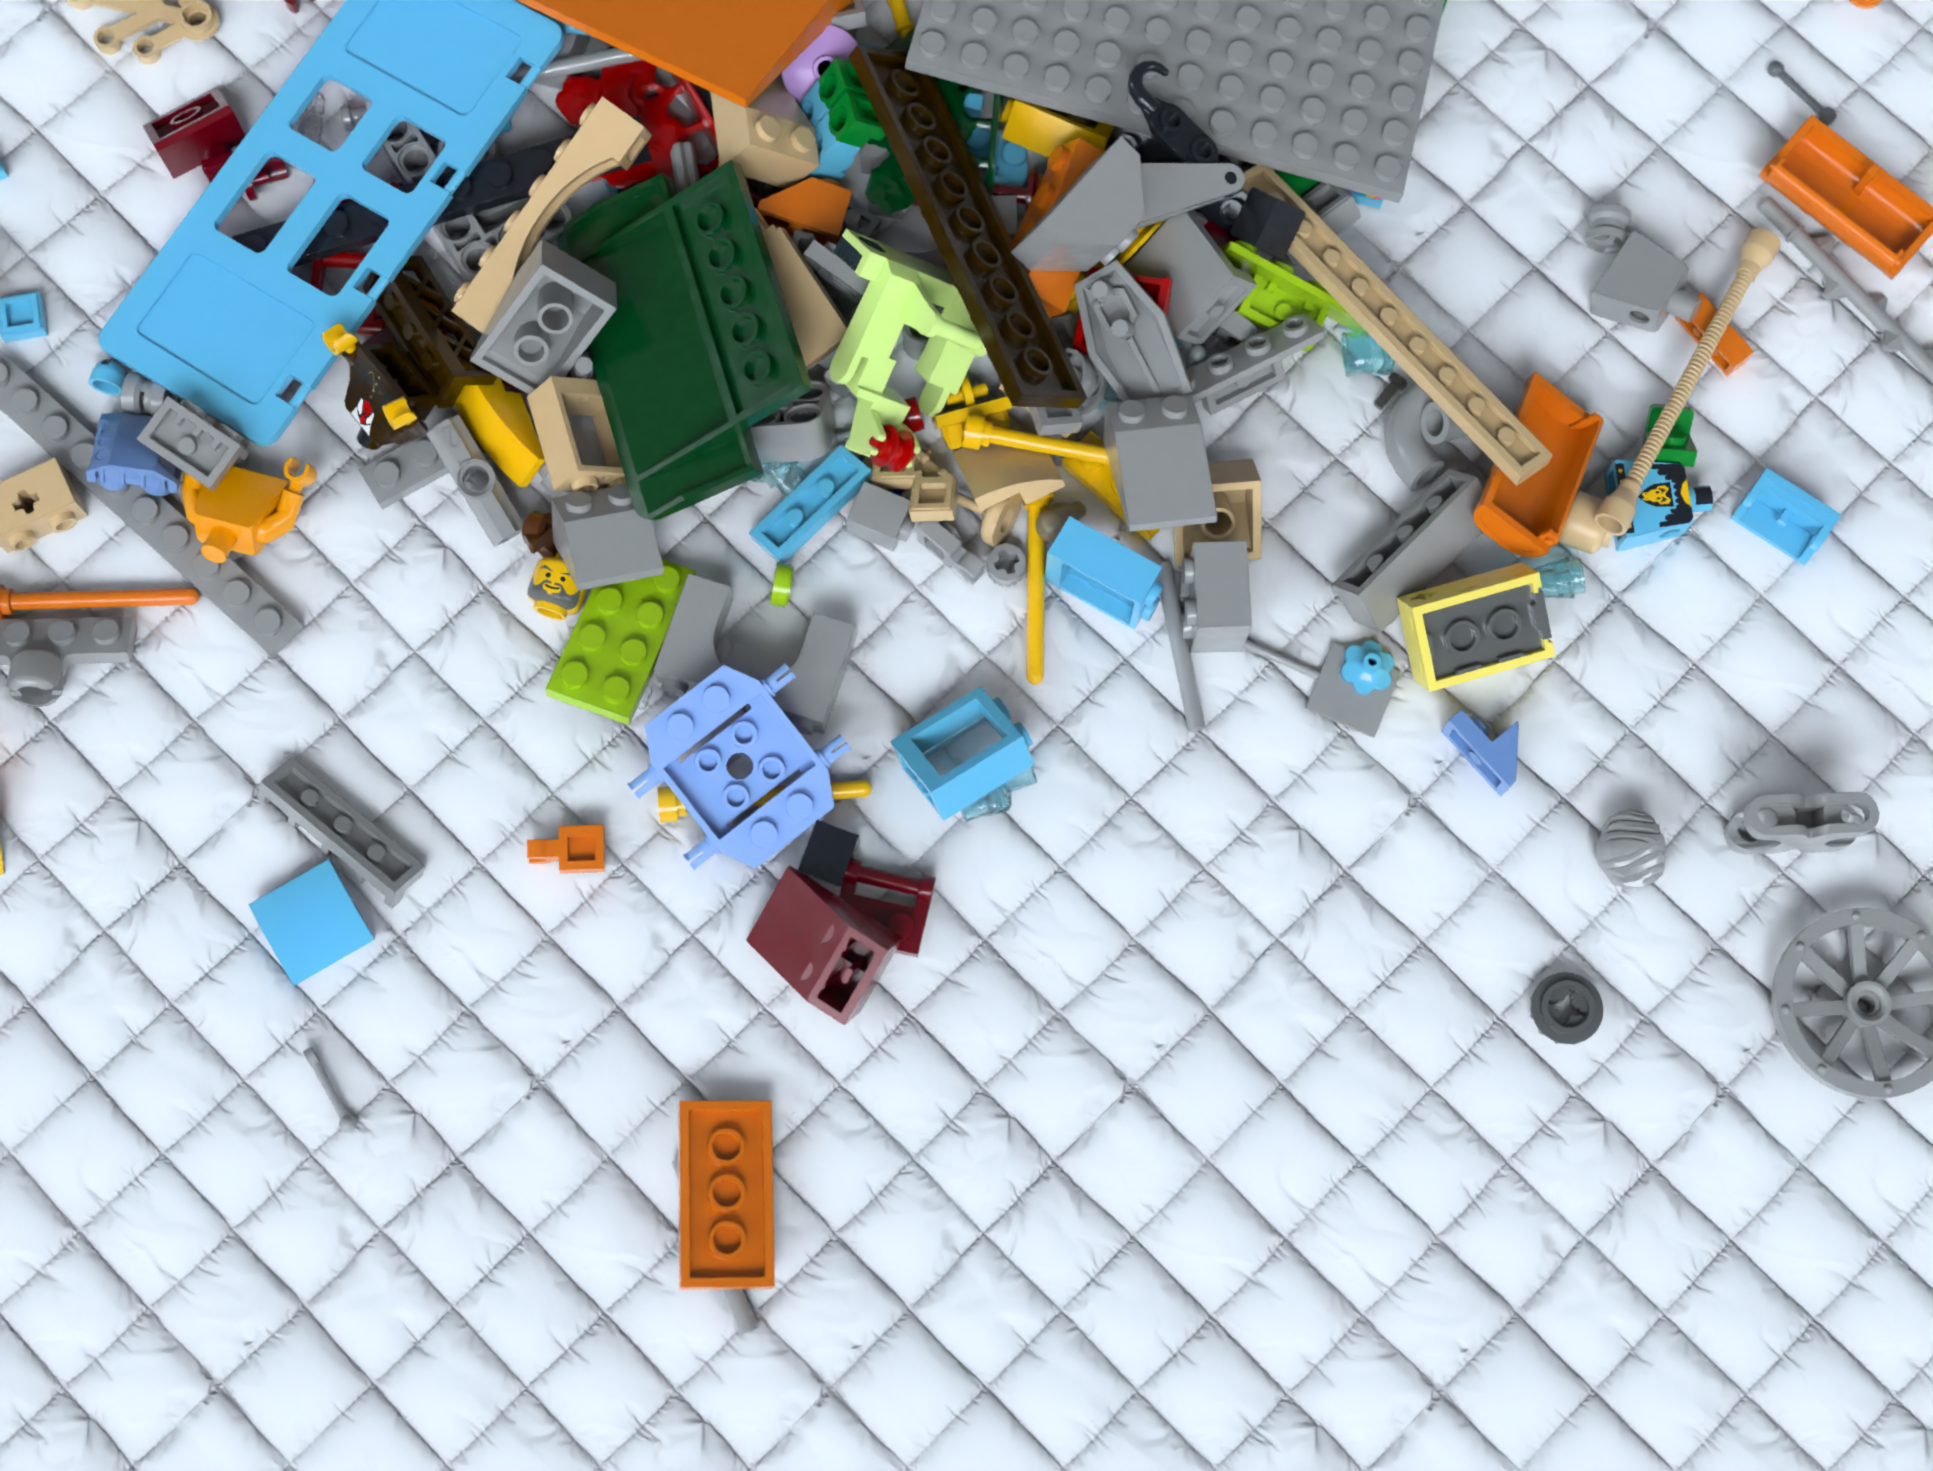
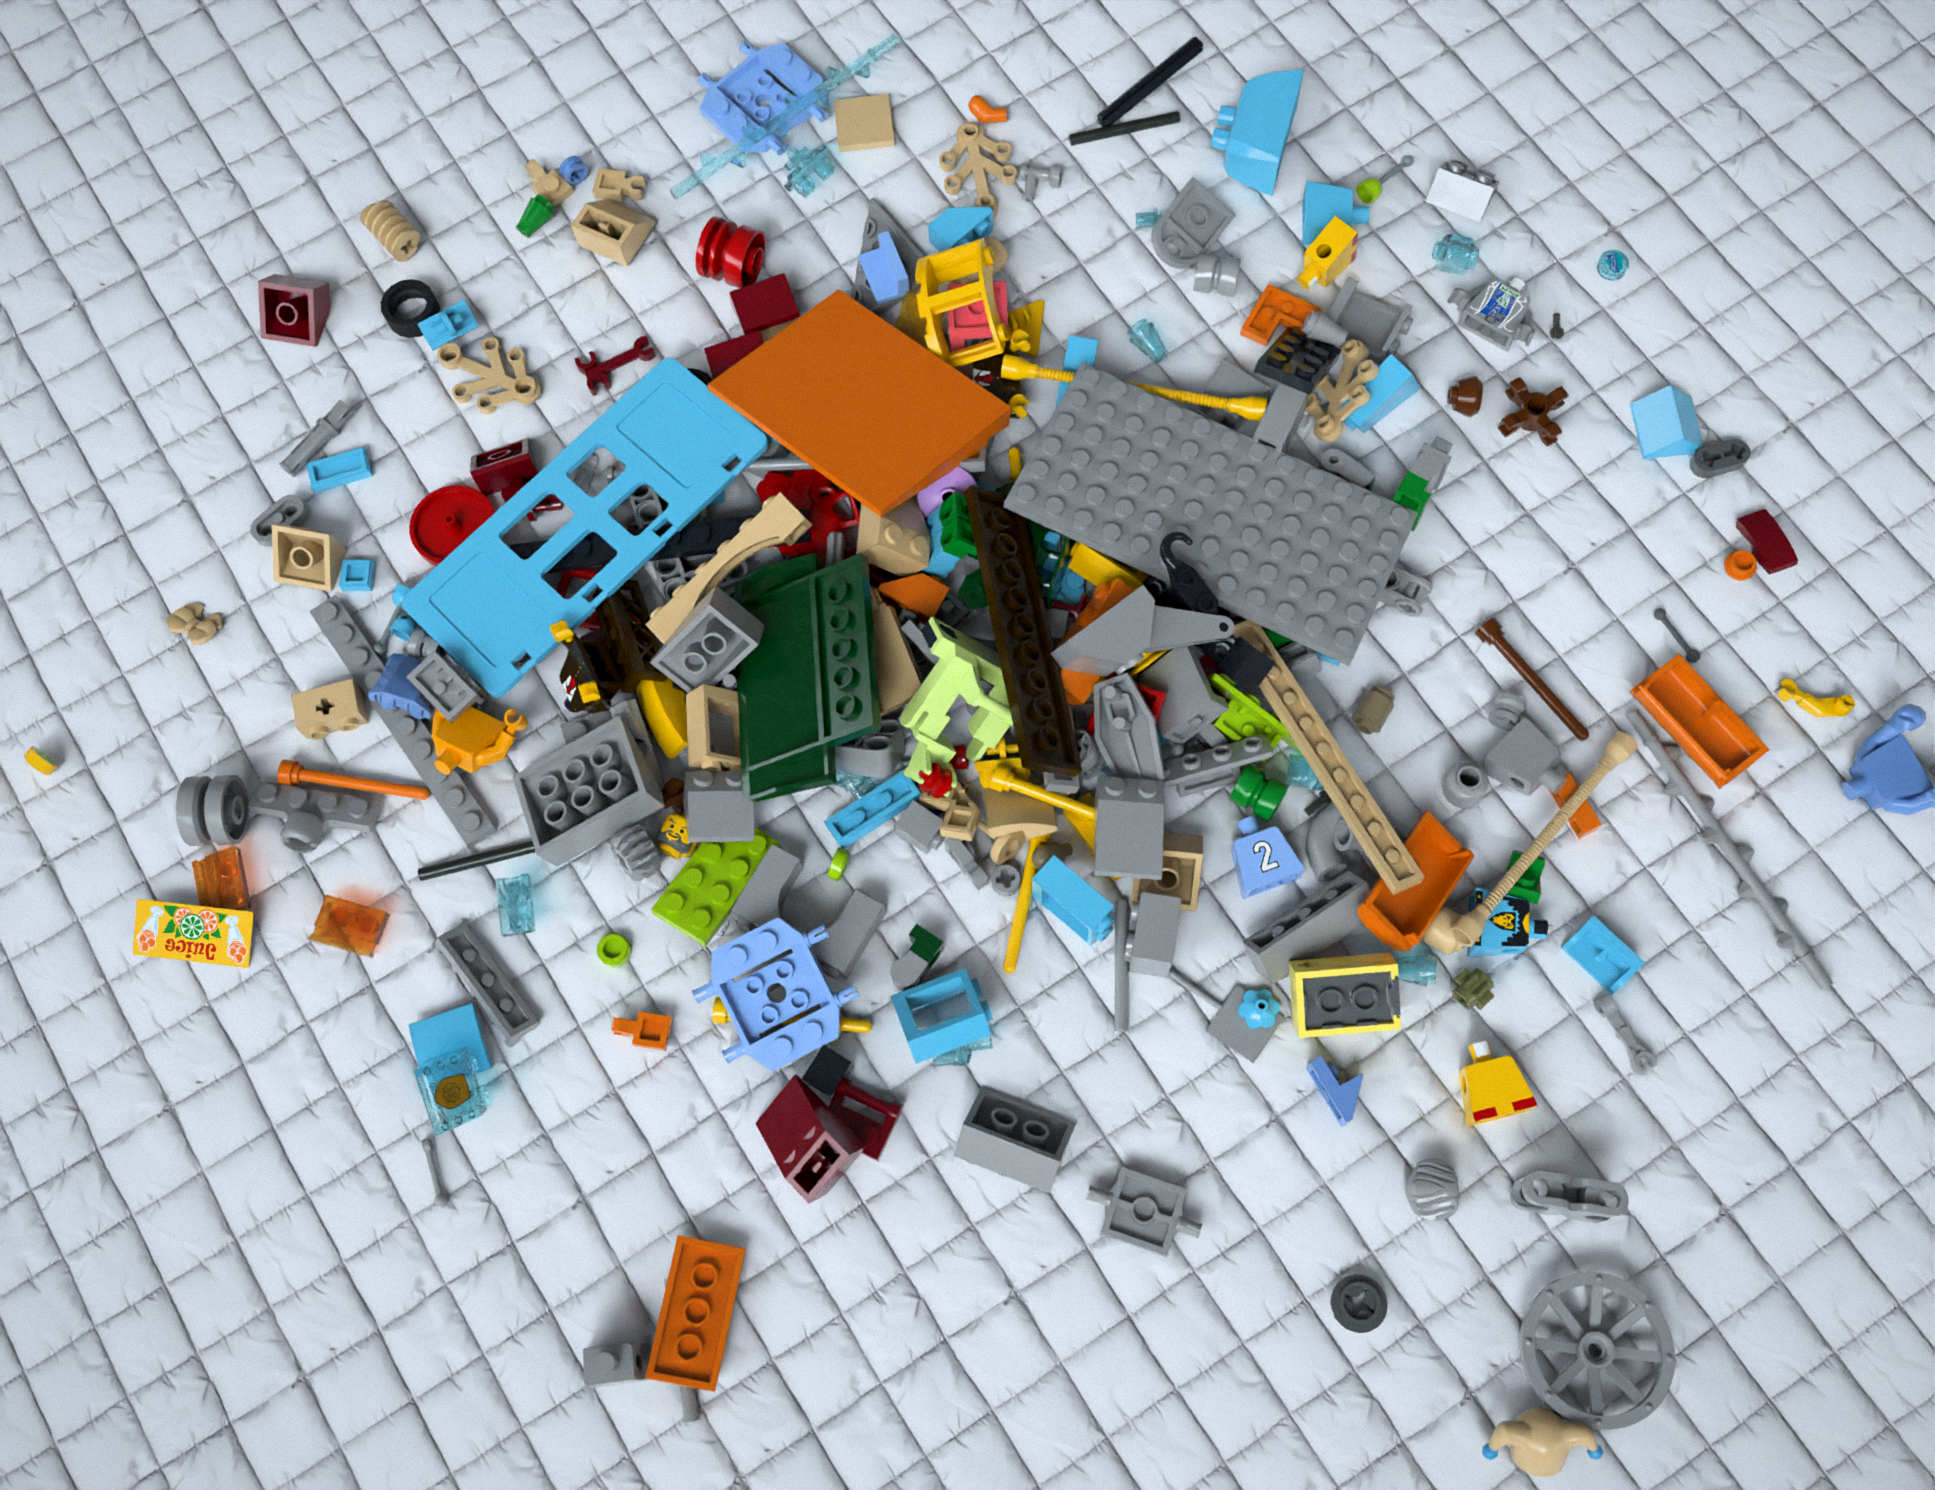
camera: 20 degrees right, 5 degrees down
(89, 337) = (397, 596): none -> hinge
(132, 220) = (447, 520): none -> red piece
(132, 791) = (349, 926): none -> clear orange plate
(293, 668) = (475, 860): none -> pearl dark grey bar
(333, 975) = (451, 1090): none -> clear light blue slope
(357, 719) = (515, 905): none -> clear light blue hips
(421, 550) = (586, 792): none -> light grey slope
(503, 754) = (614, 950): none -> lime tile
(506, 619) = (636, 853): none -> light grey gear
(635, 1280) = (615, 1364): none -> light grey torso
(908, 702) = (919, 959): none -> leg
(1091, 893) = (1014, 1139): none -> light grey slope
(1274, 950) = (1143, 1211): none -> light grey plate
(1313, 390) = (1258, 792): none -> green wheel
(1335, 475) = (1263, 859): none -> light blue torso
(1437, 256) = (1373, 710): none -> dark tan brick
(1444, 95) = (1402, 589): none -> light grey piece
(1571, 132) = (1492, 634): none -> reddish brown piece
(1574, 331) = (1465, 784): none -> light grey head
(1633, 589) = (1473, 989): none -> olive gear
(1681, 707) = (1493, 1087): none -> yellow torso
(1802, 582) = (1607, 1008): none -> light grey piece
(1822, 1127) = (1541, 1441): none -> tan piece

